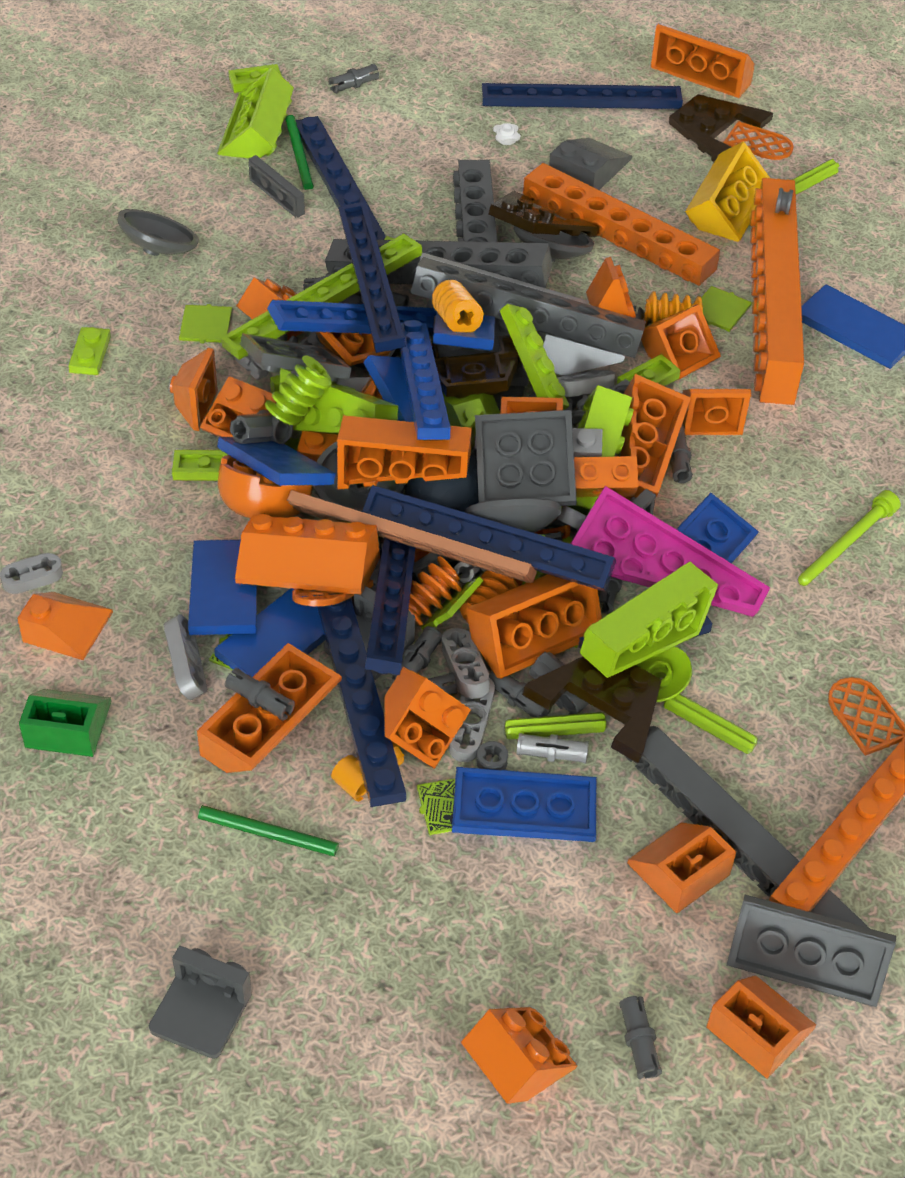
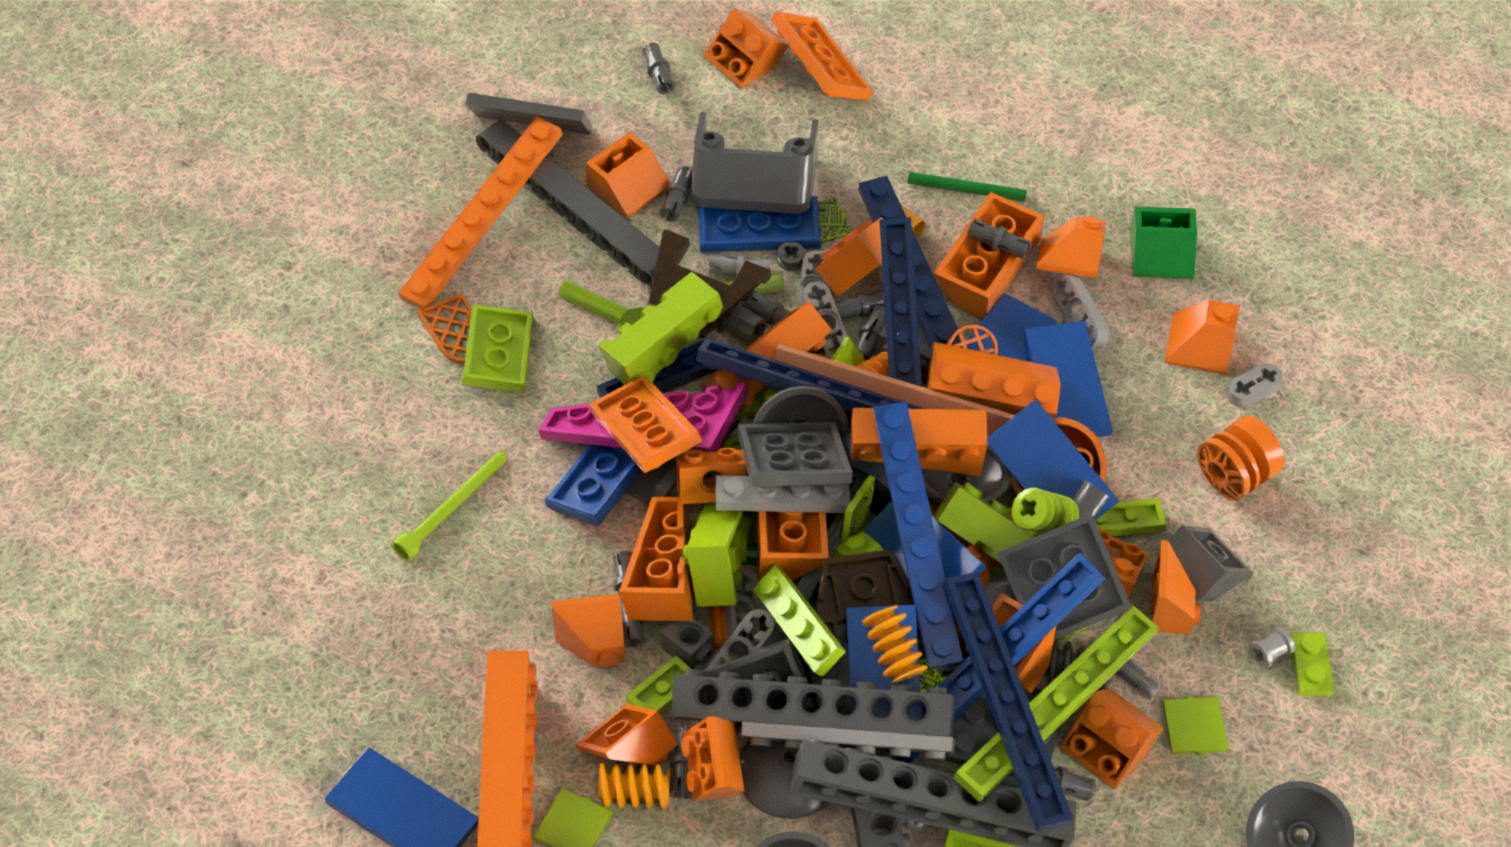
camera: 175 degrees right, 5 degrees up
(76, 484) = (1241, 457): none -> orange wheel
(120, 357) = (1272, 647): none -> light grey bush
(150, 419) = (1207, 562): none -> dark grey slope
(172, 712) = (1073, 247): none -> orange slope
(202, 1002) = (981, 60): dark grey bracket -> none
(420, 1017) = (821, 56): none -> orange plate
(489, 813) = (752, 177): none -> dark grey windscreen
(620, 847) = (677, 194): none -> dark grey pin
(667, 516) = (645, 423): none -> orange plate
(759, 1024) = (568, 74): orange slope -> none
(819, 683) = (497, 348): none -> lime tile

